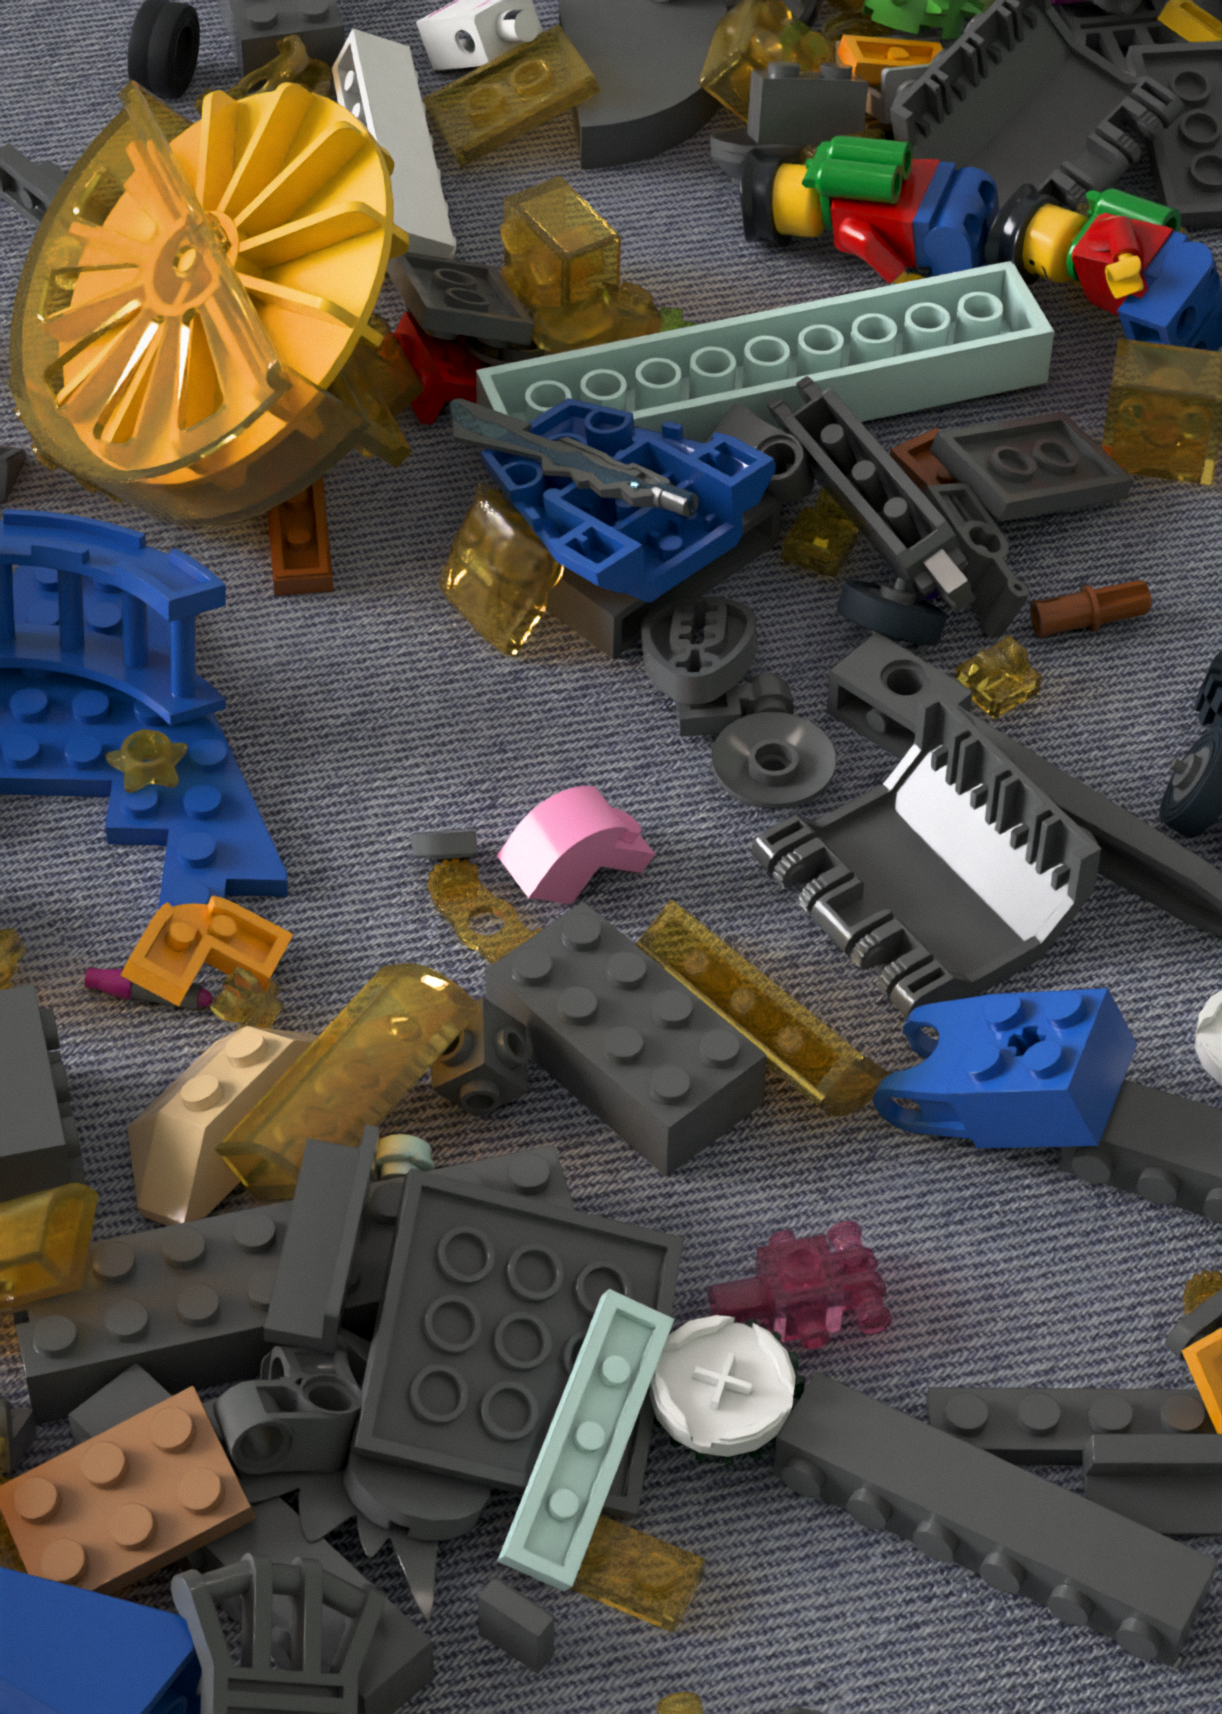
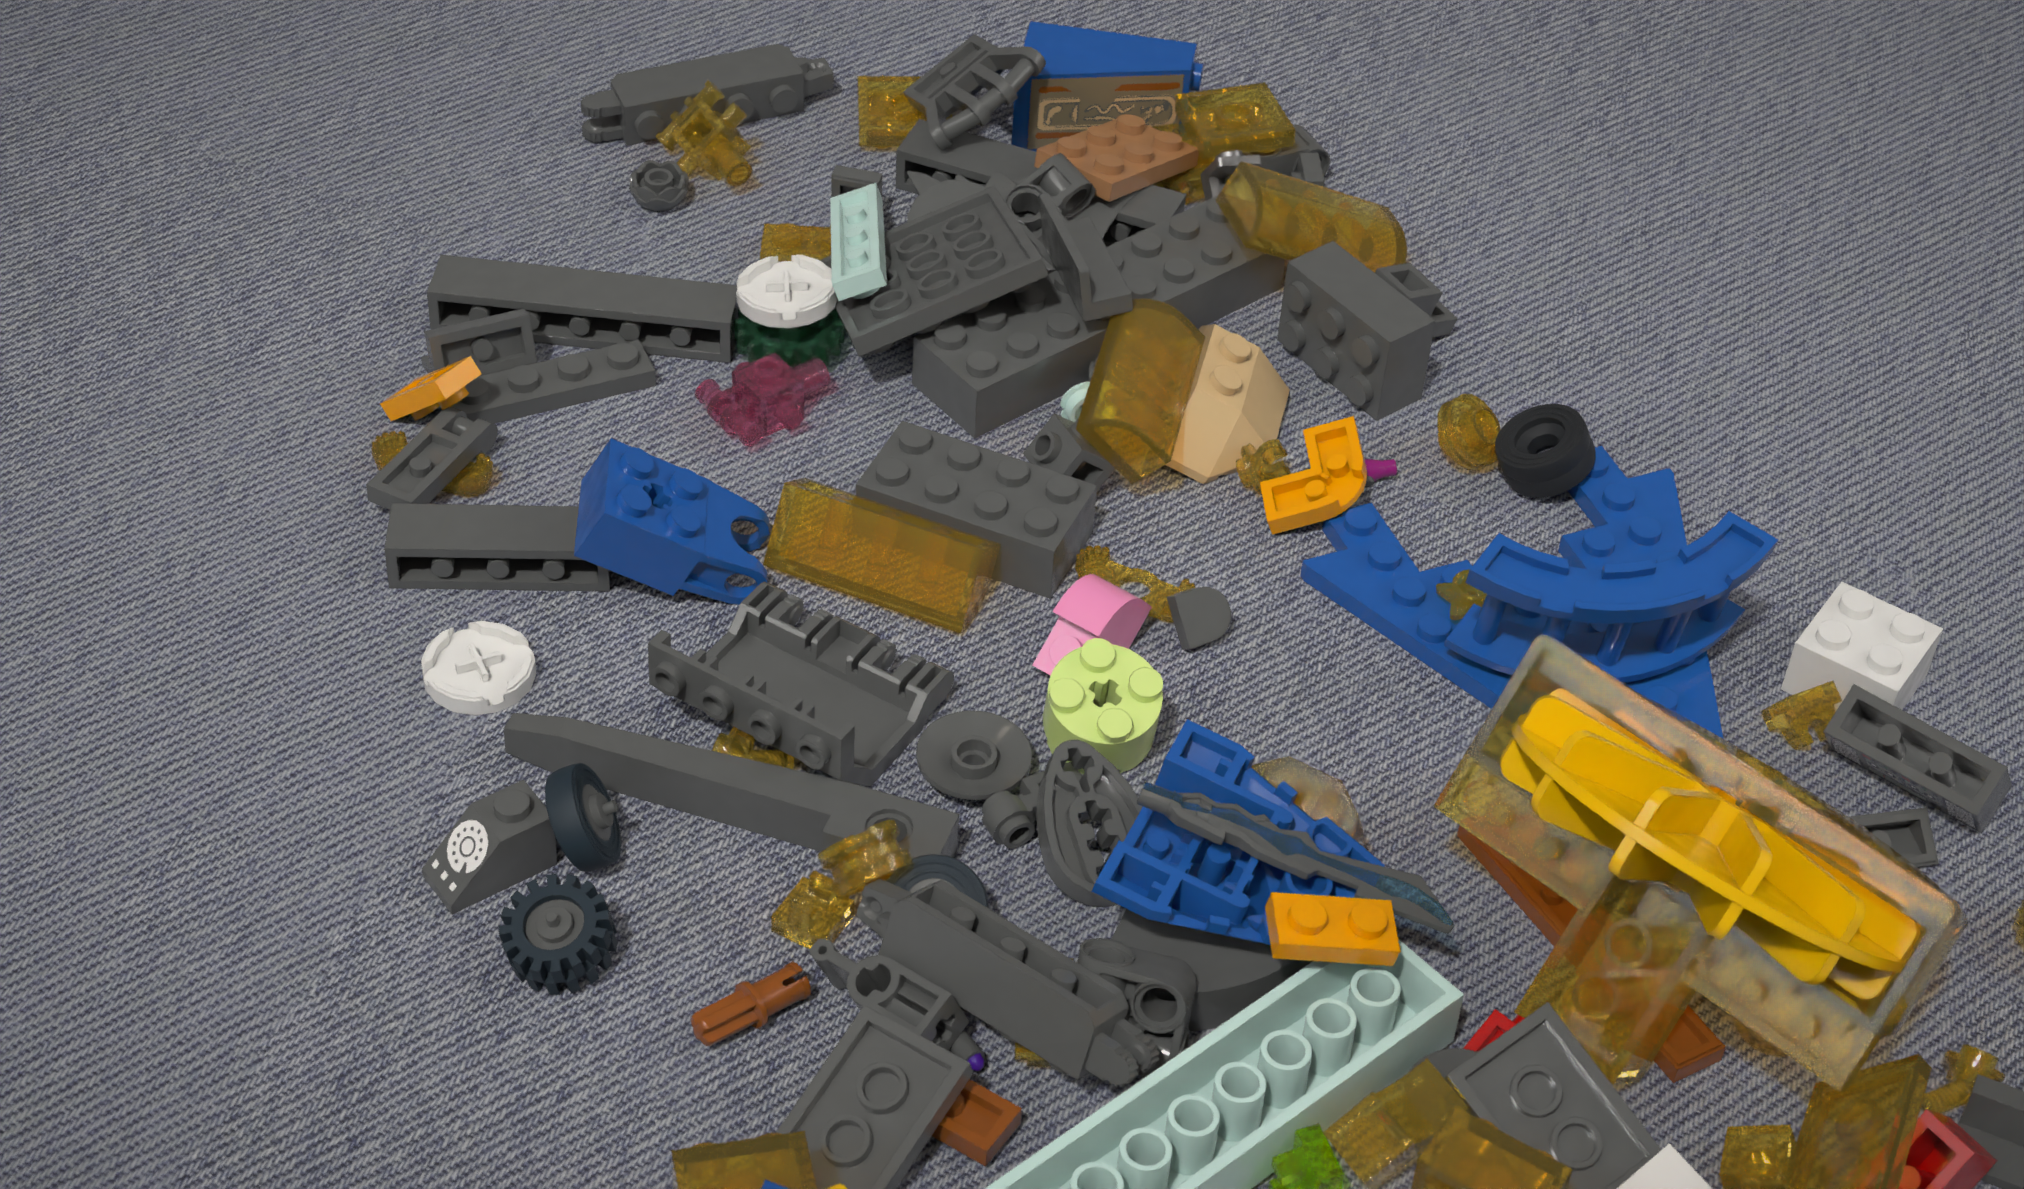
camera: 155 degrees right, 5 degrees down
(574, 397) = (1332, 929): none -> light orange plate
(626, 740) = (1105, 700): none -> yellowish green brick
(926, 625) = (864, 858): none -> clear yellow wheel

